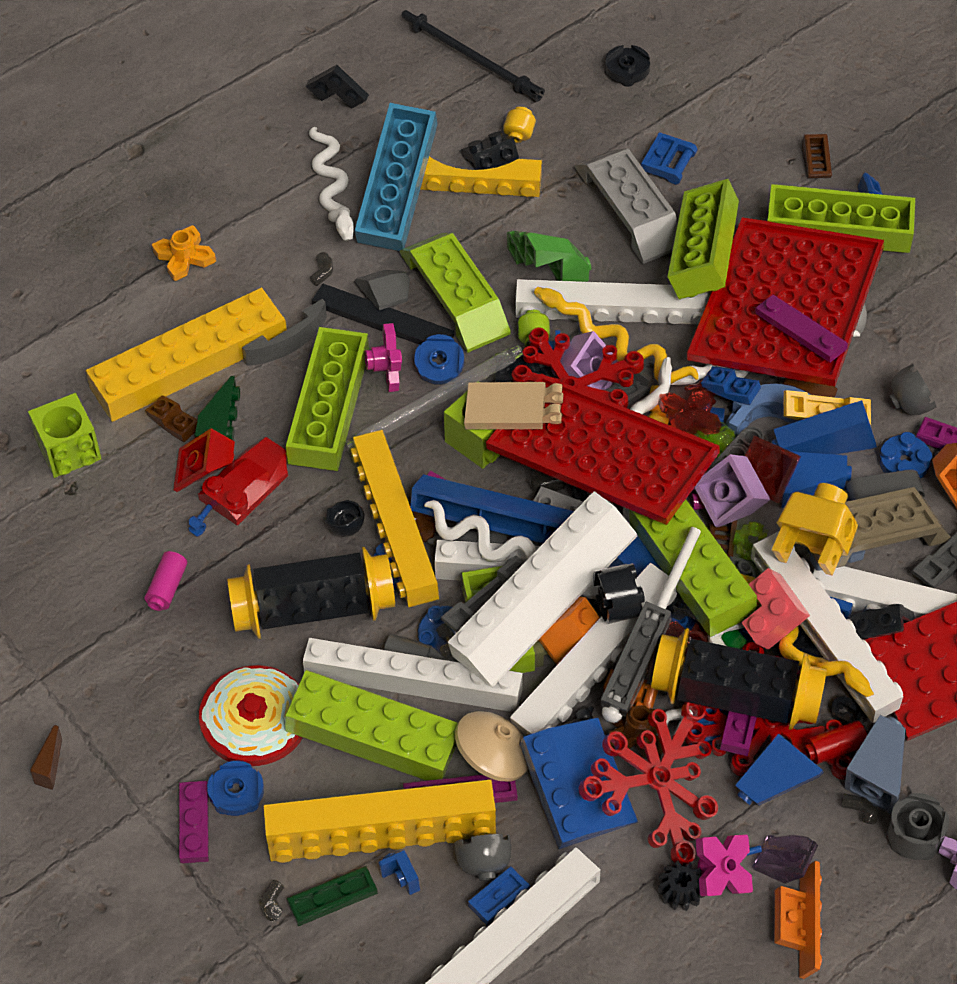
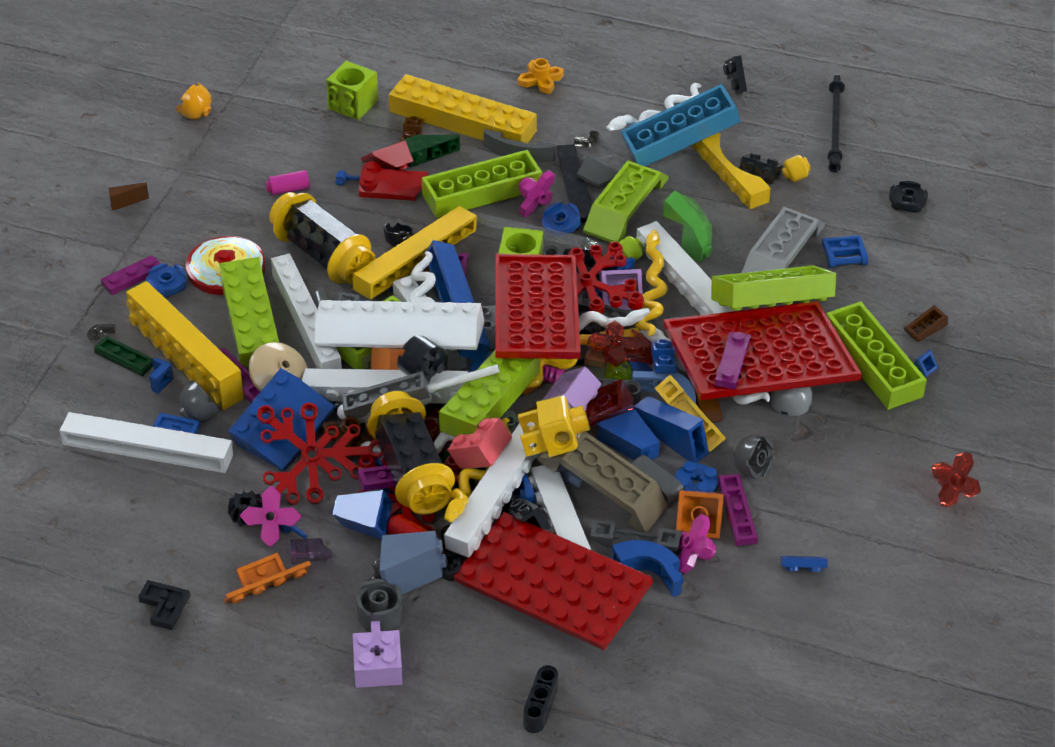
camera: 55 degrees right, 10 degrees down
(512, 405) = (532, 250): tan tile -> none

